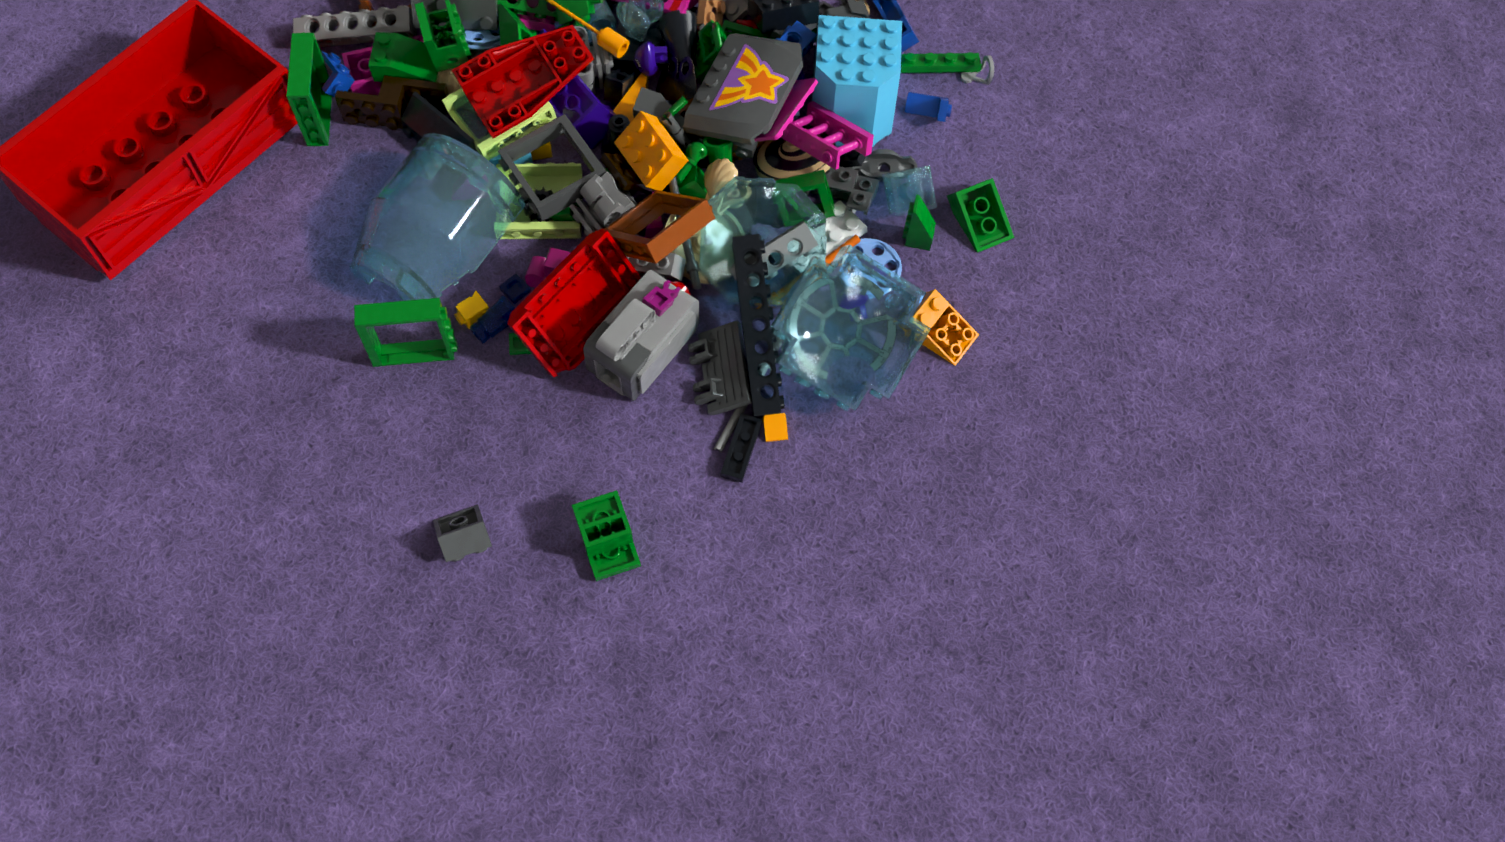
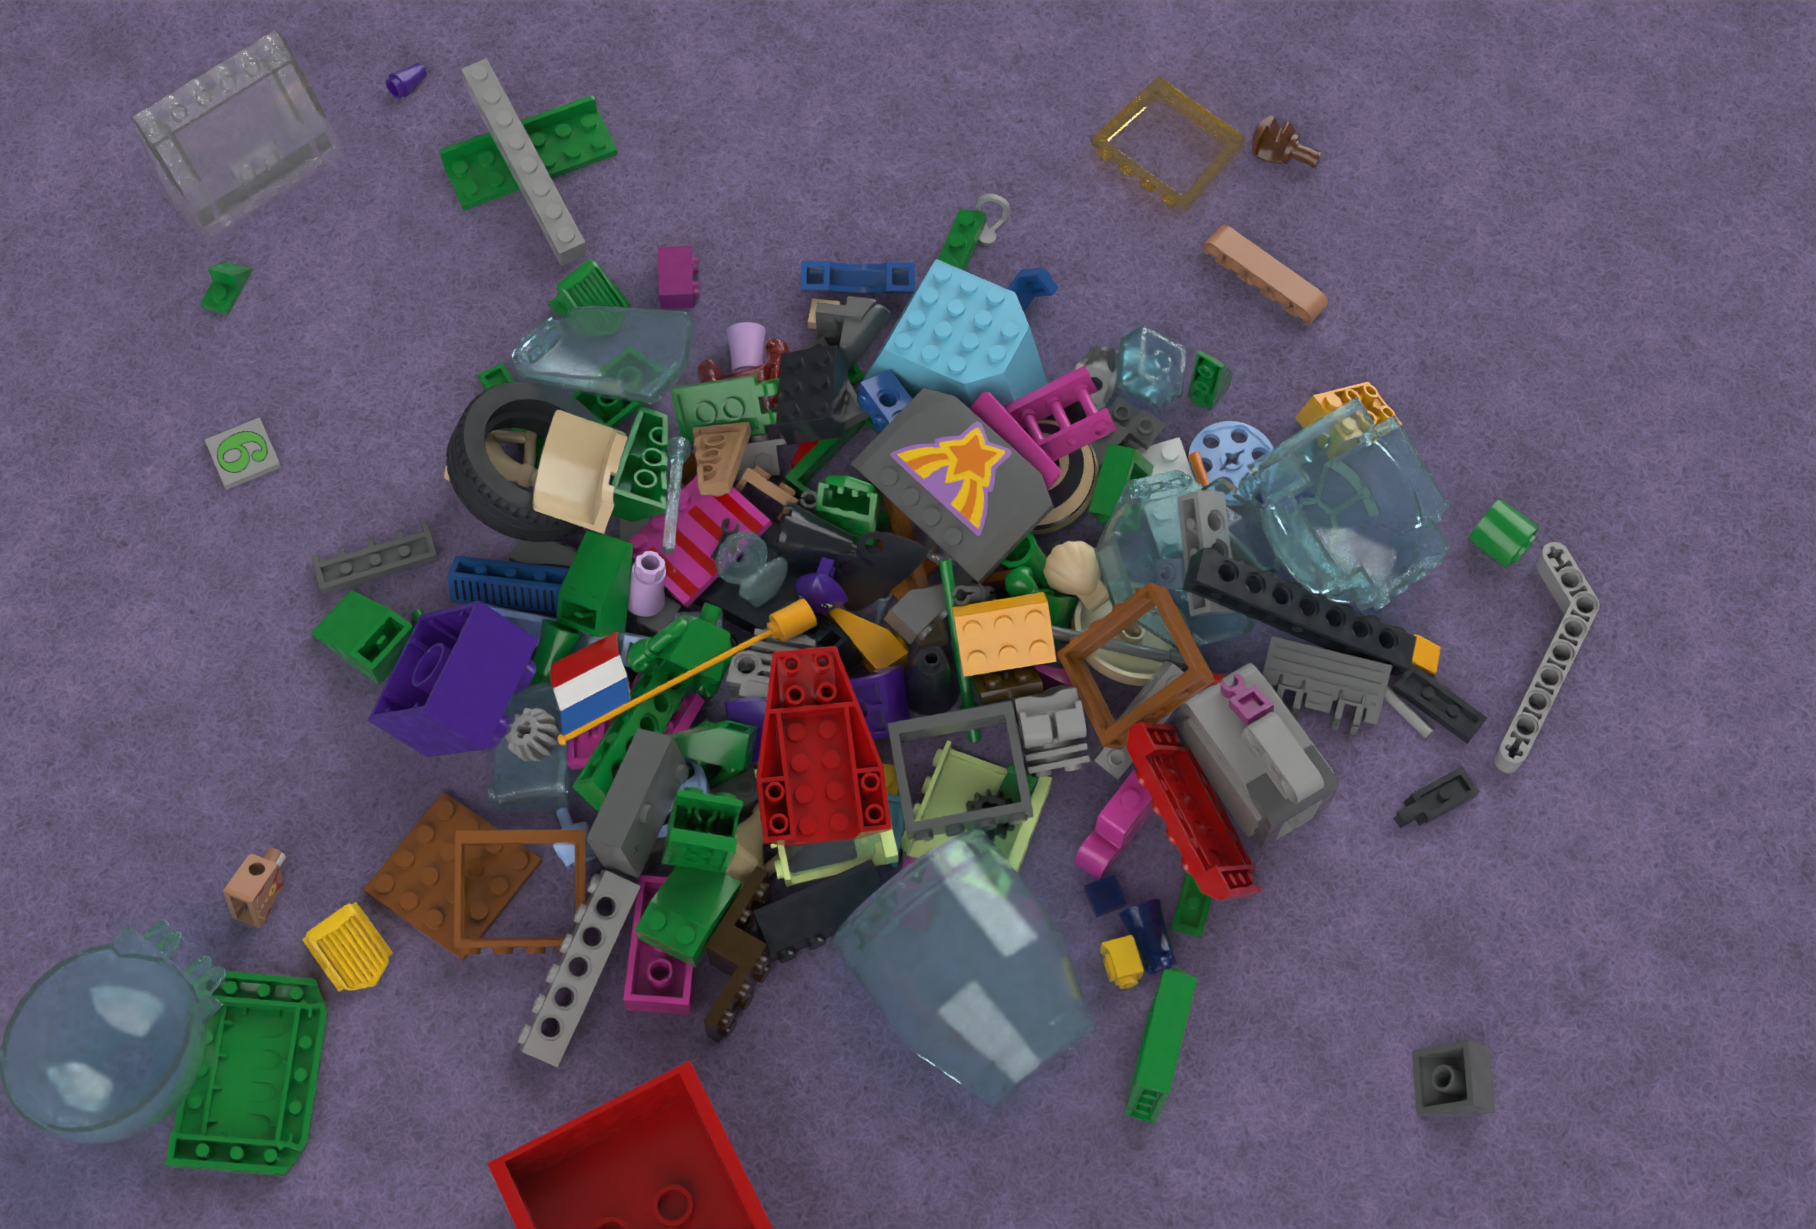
camera: 65 degrees left, 0 degrees up
(308, 72) = (661, 1044): green window -> none
(340, 77) = (686, 1018): blue bracket -> none
(606, 535) = (1523, 900): green bracket -> none
(668, 466) = (1437, 798): none -> black hinge
(803, 506) = (1554, 567): none -> light grey beam
(892, 447) = (1504, 533): none -> green piece
(981, 215) = (1204, 306): green slope -> none
(1027, 243) = (1266, 273): none -> nougat beam
(1122, 191) = (1191, 110): none -> clear yellow windscreen
(1140, 218) = (1281, 144): none -> reddish brown piece

